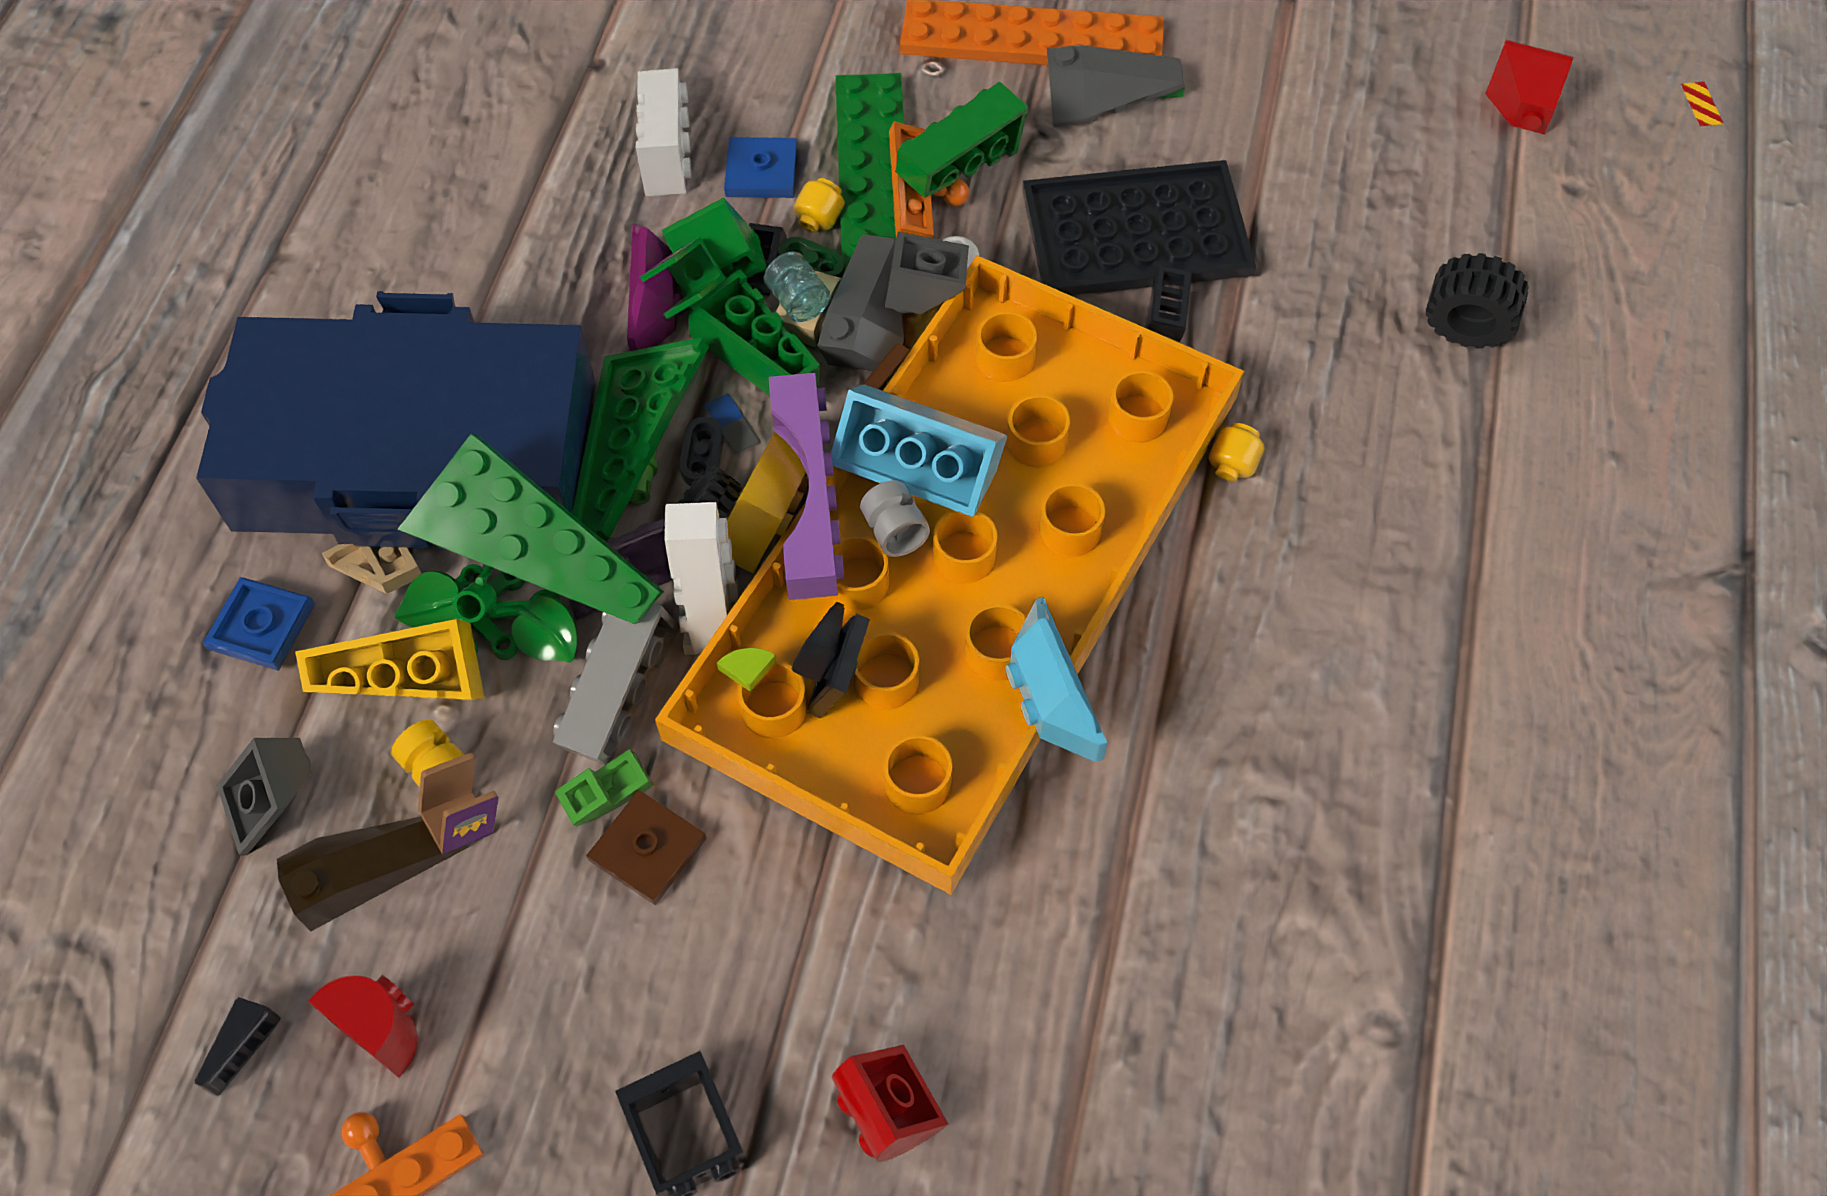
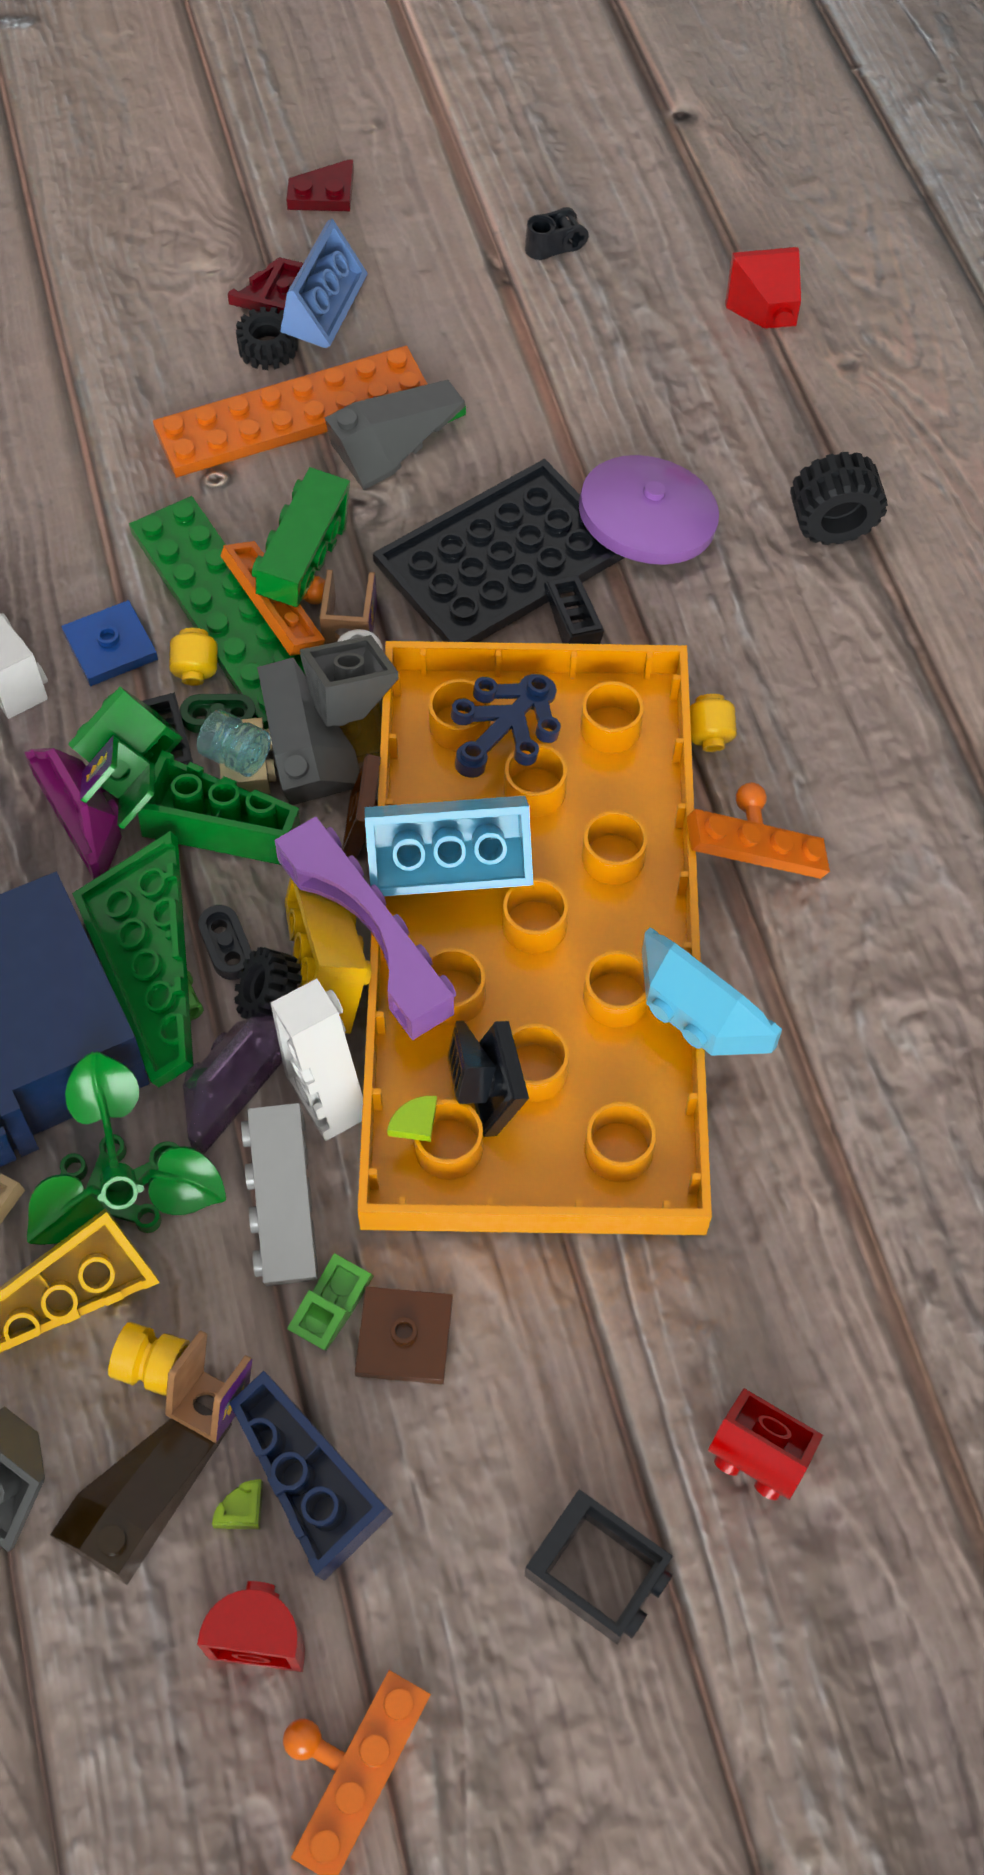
camera: 30 degrees left, 0 degrees up
(238, 1039) = (129, 1717): black slope -> none
(432, 917) = (240, 1507): none -> lime tile
(494, 922) = (318, 1489): none -> dark blue wedge
(511, 524) = (114, 1093): green wing -> none
(733, 424) = (249, 910): sticker -> none
(895, 518) = (471, 921): light grey wheel -> none
(952, 214) = (330, 623): none -> medium nougat piece
(1079, 353) = (533, 693): none -> dark blue plant
(1206, 572) = (755, 842): none -> orange plate
(1295, 242) = (648, 509): none -> medium lavender dish
(1702, 104) = (908, 247): sticker -> none

